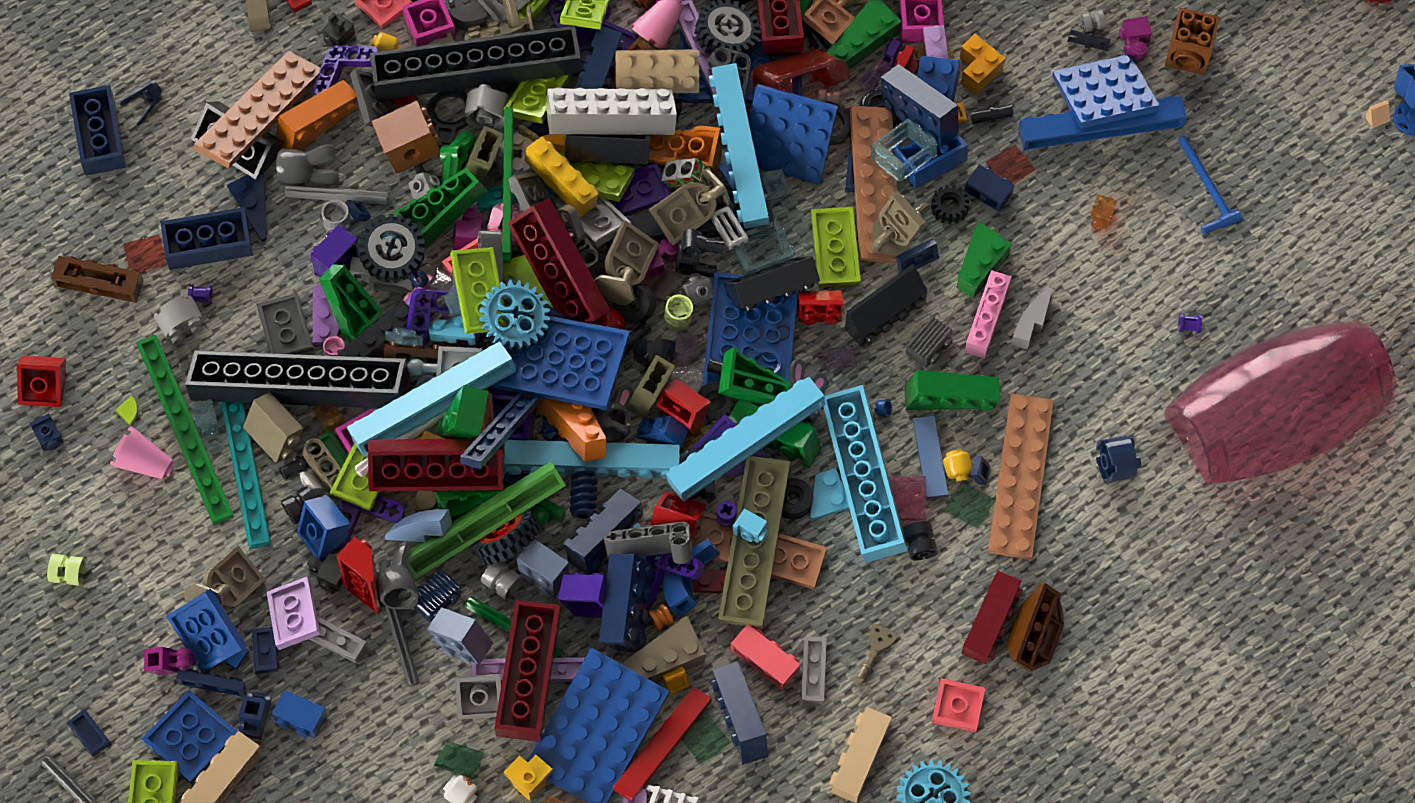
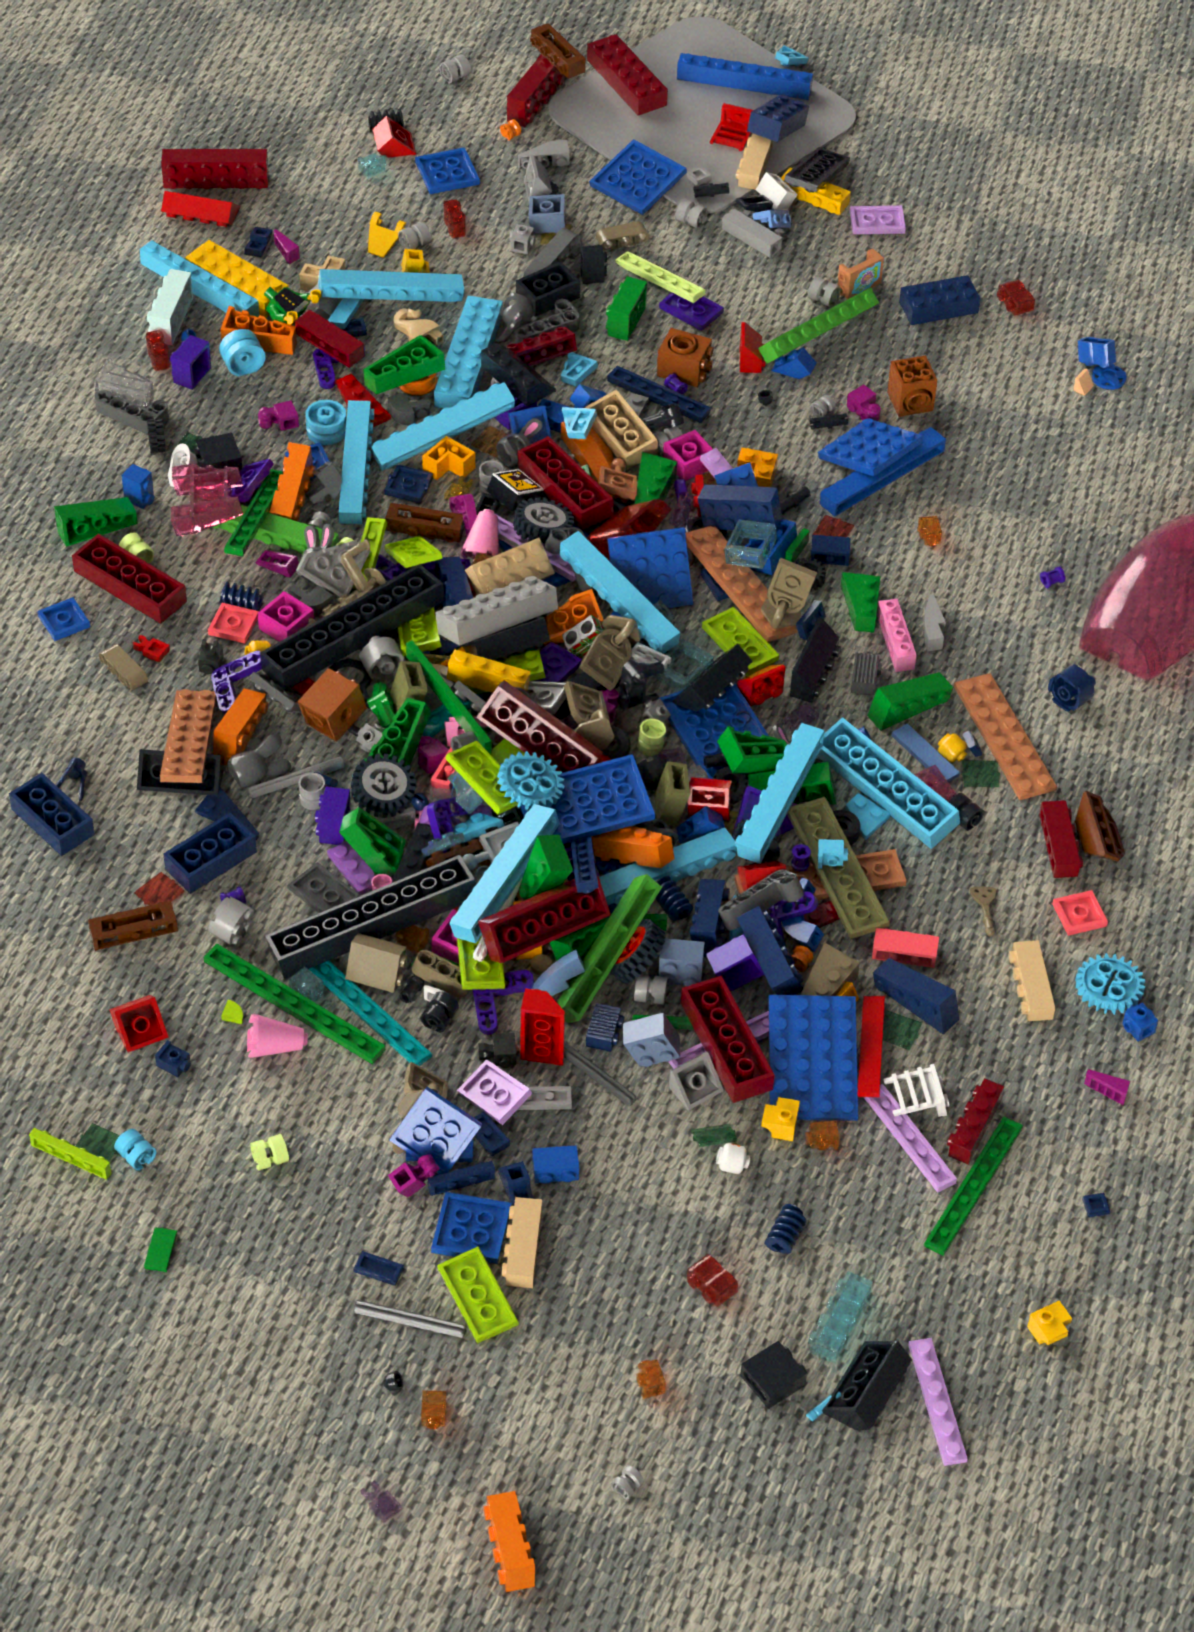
camera: 30 degrees left, 15 degrees down
(322, 526) = (472, 1017): blue slope -> none
(396, 579) = (572, 1022): dark grey piece -> none
(813, 670) = (950, 940): light grey plate -> none
(959, 168) = (797, 545): none -> green tile
(1227, 216) = (1024, 496): blue bar -> none

